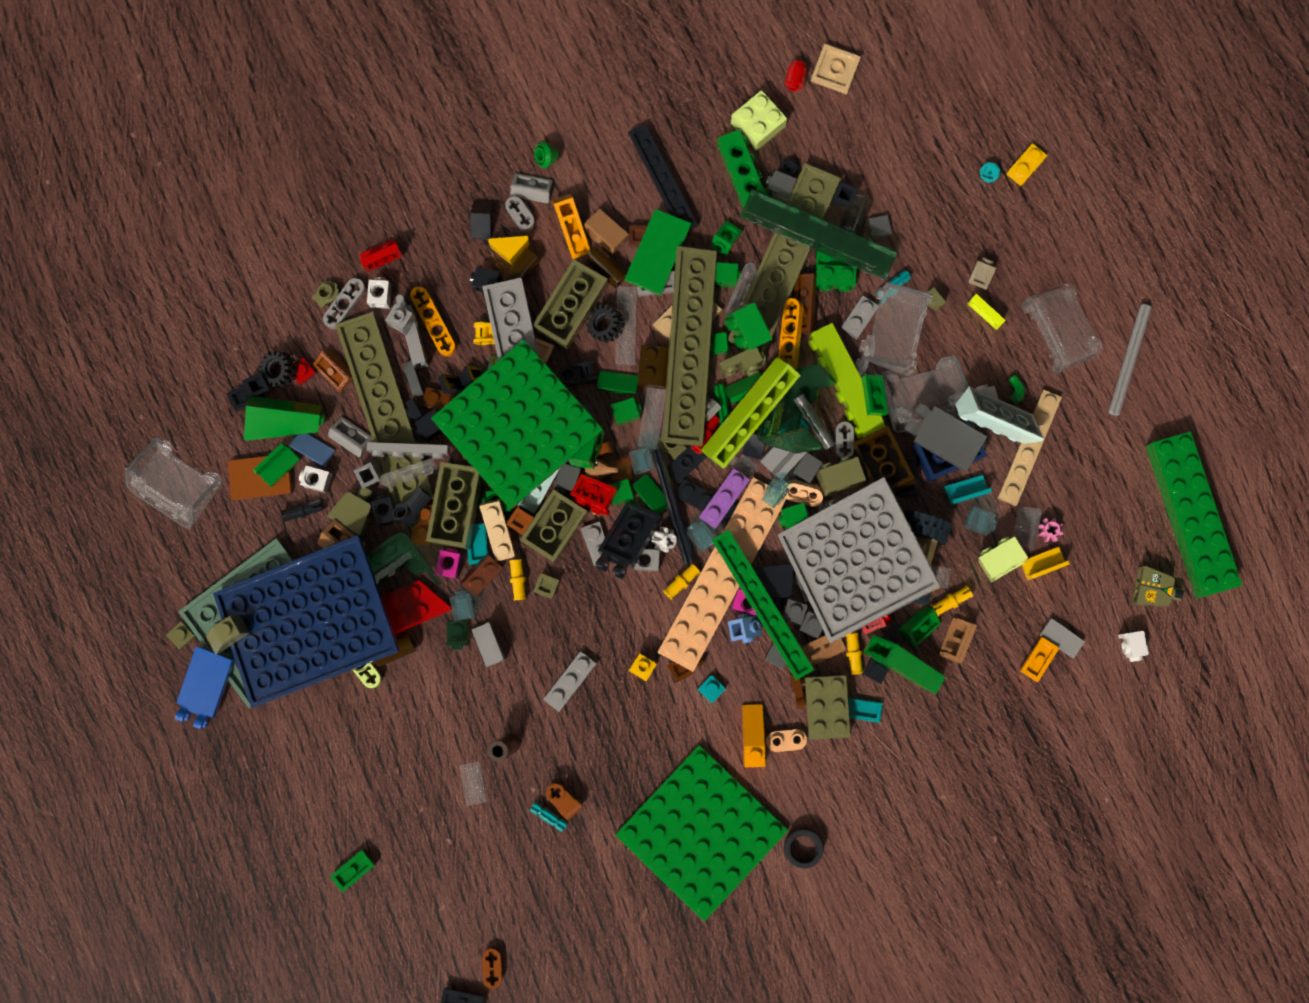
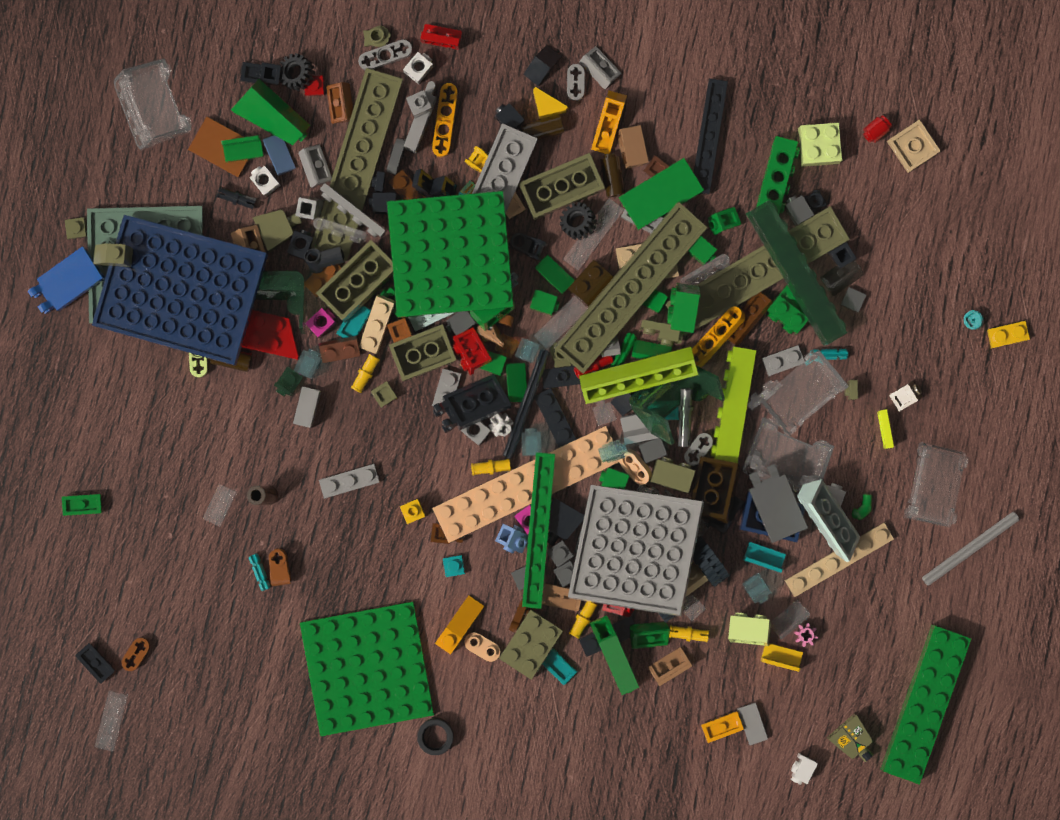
camera: 30 degrees right, 5 degrees up
(546, 154) = (630, 49): green cone -> none
(724, 498) = (570, 427): medium lavender plate -> none
(875, 395) = (746, 432): green plate -> none

